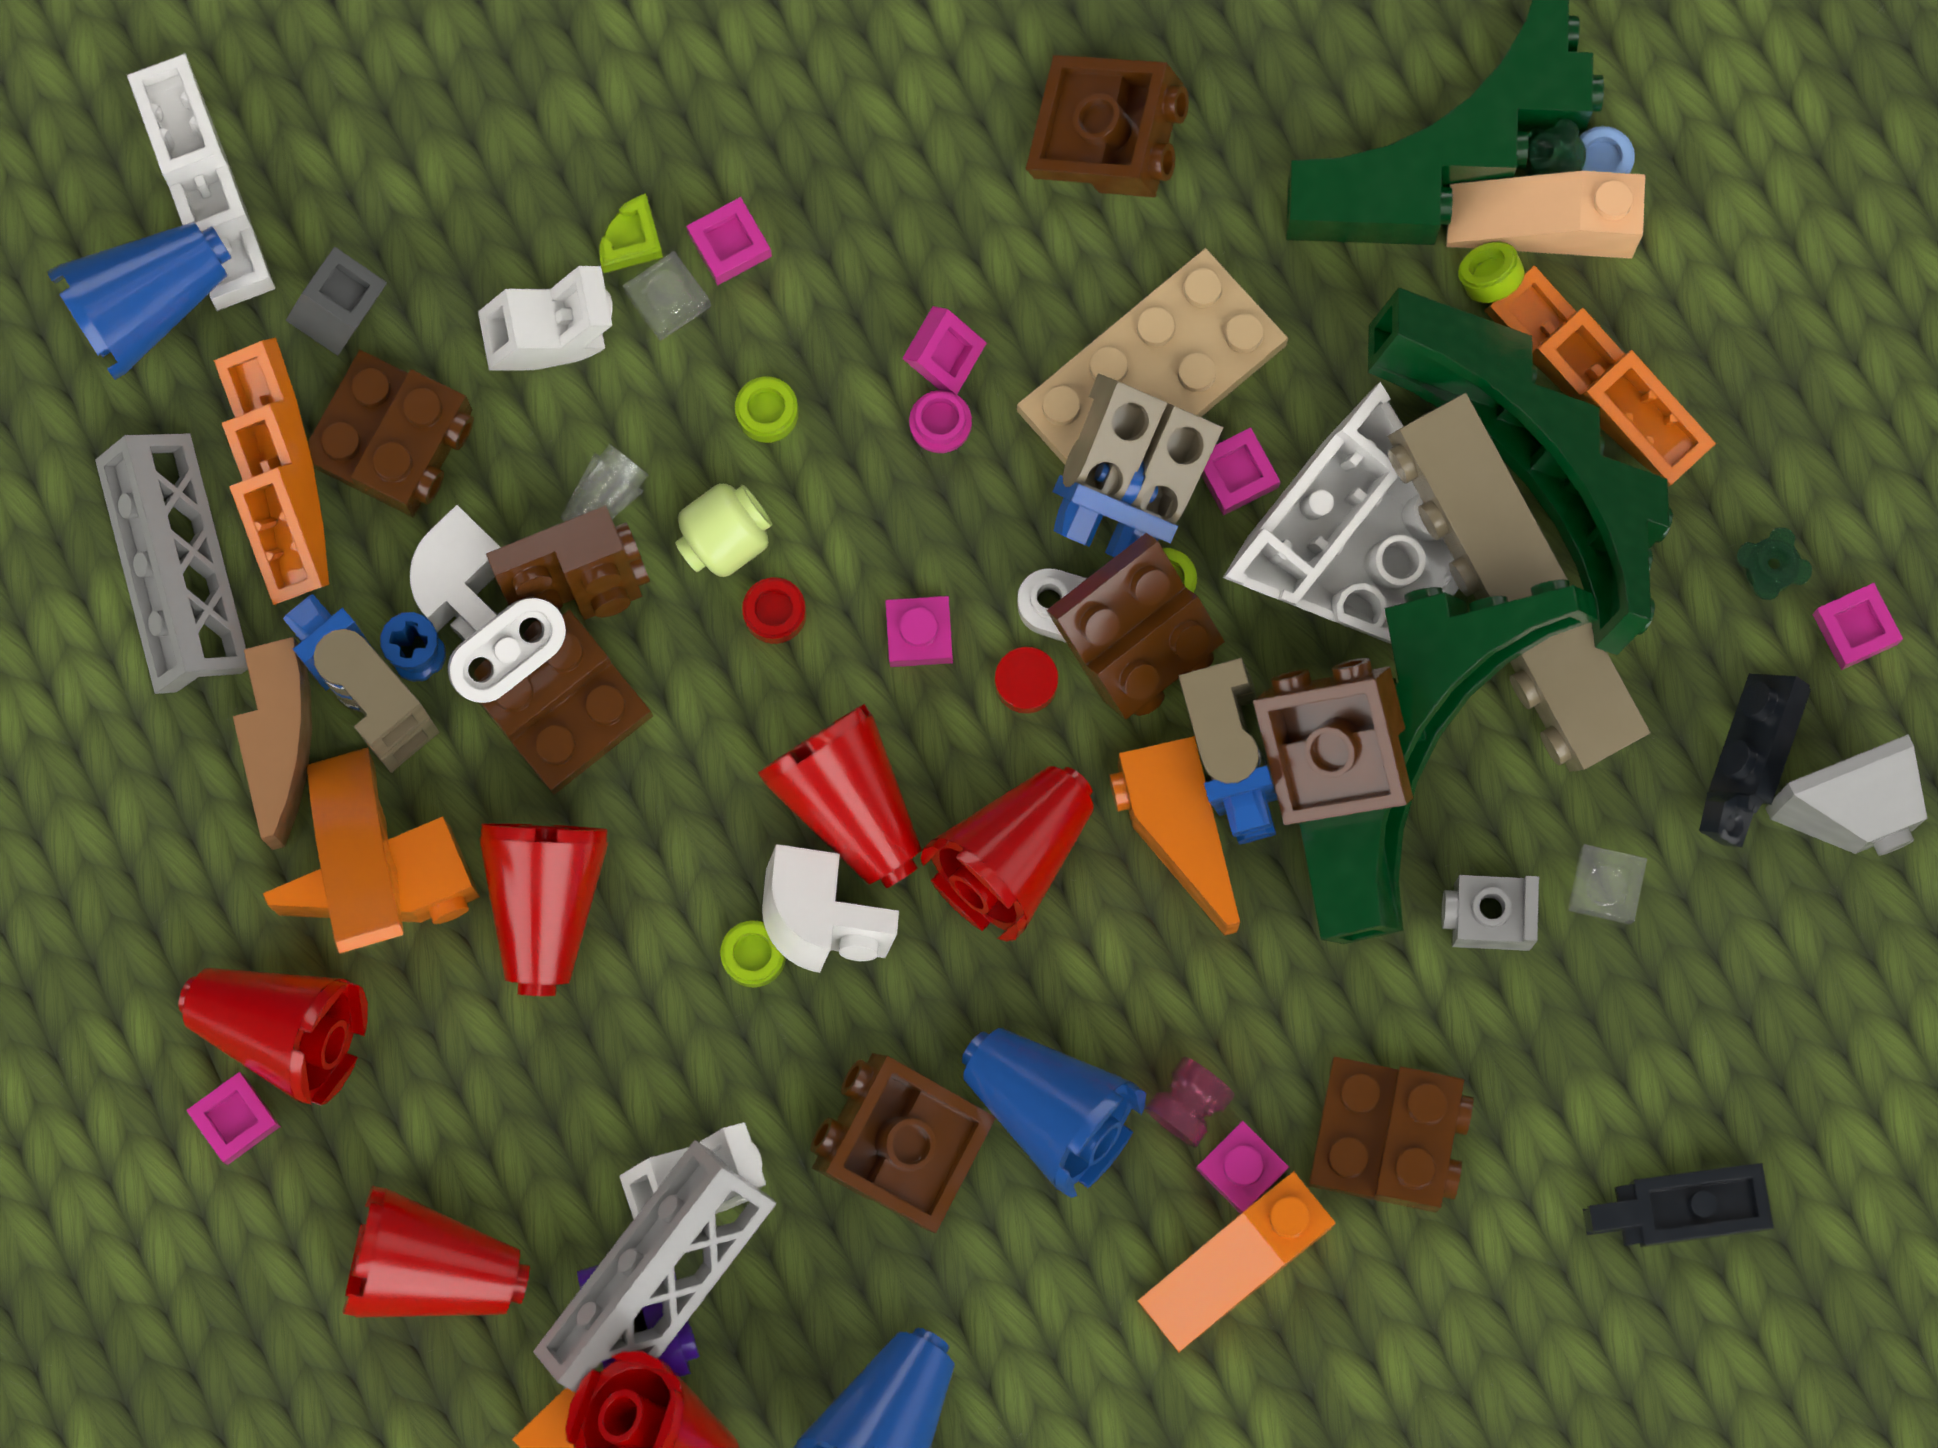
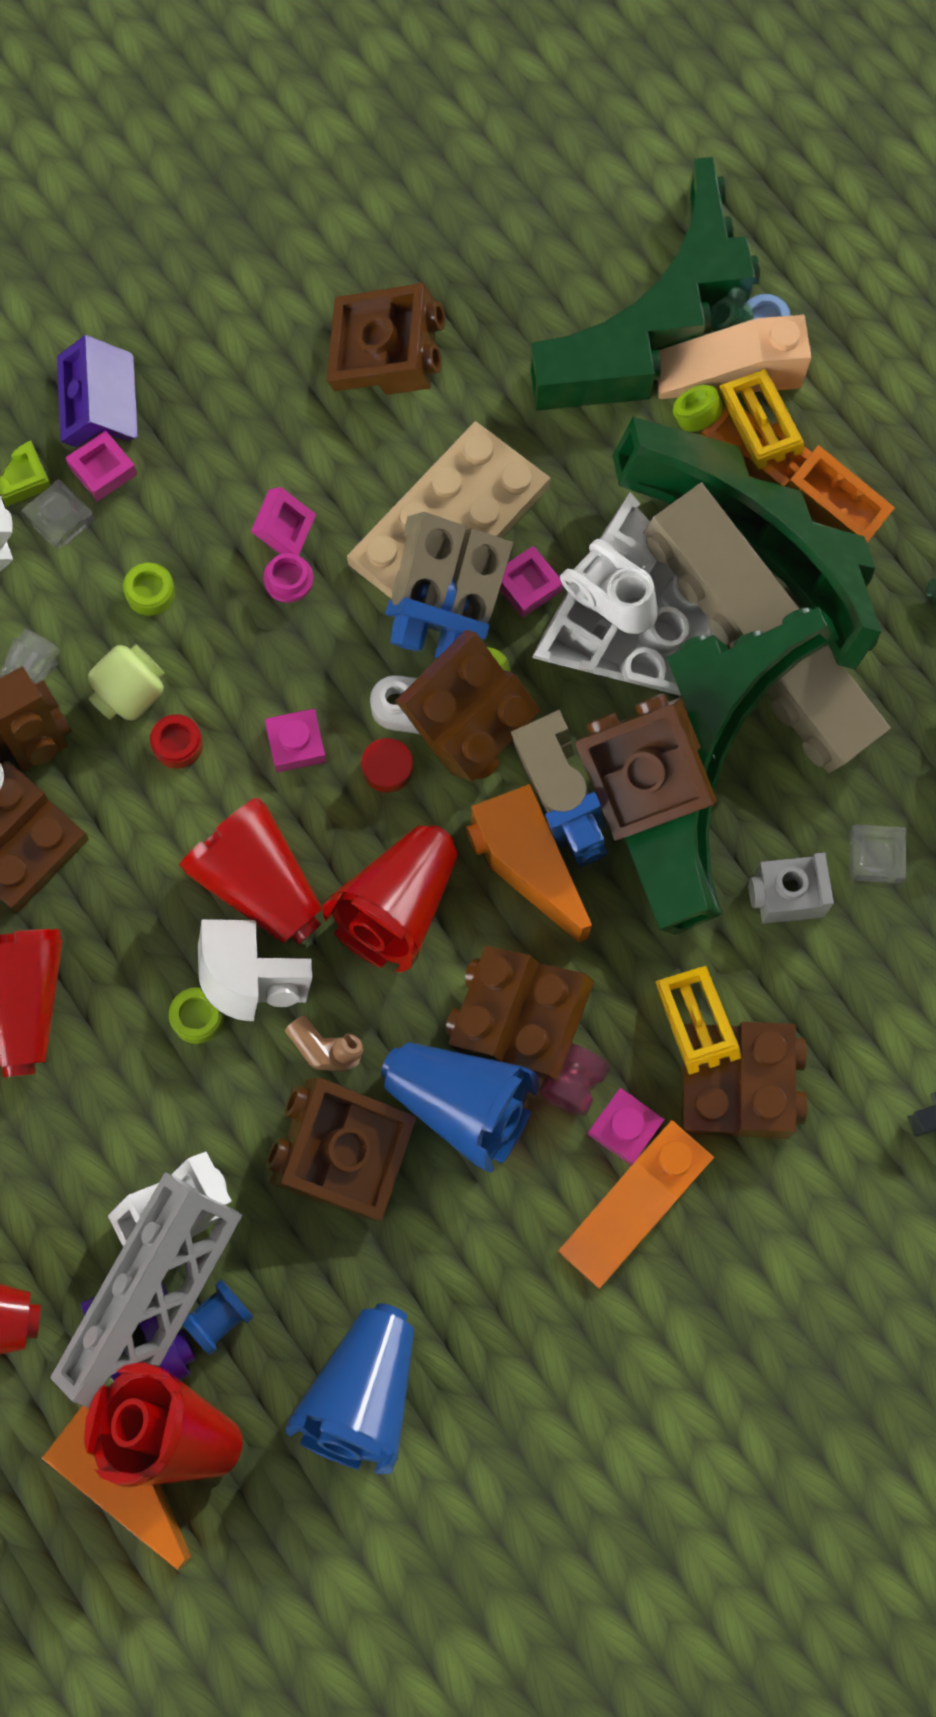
camera: 15 degrees left, 5 degrees down
(729, 1313) = (216, 1317): none -> blue bush
(734, 141) = (96, 392): none -> panel
(898, 1022) = (321, 1052): none -> medium nougat arm
(1136, 1013) = (519, 1011): none -> reddish brown plate
(1328, 498) = (607, 581): none -> white piece
(1355, 1098) = (710, 1052): none -> yellow tile
(1576, 349) = (775, 448): none -> yellow tile

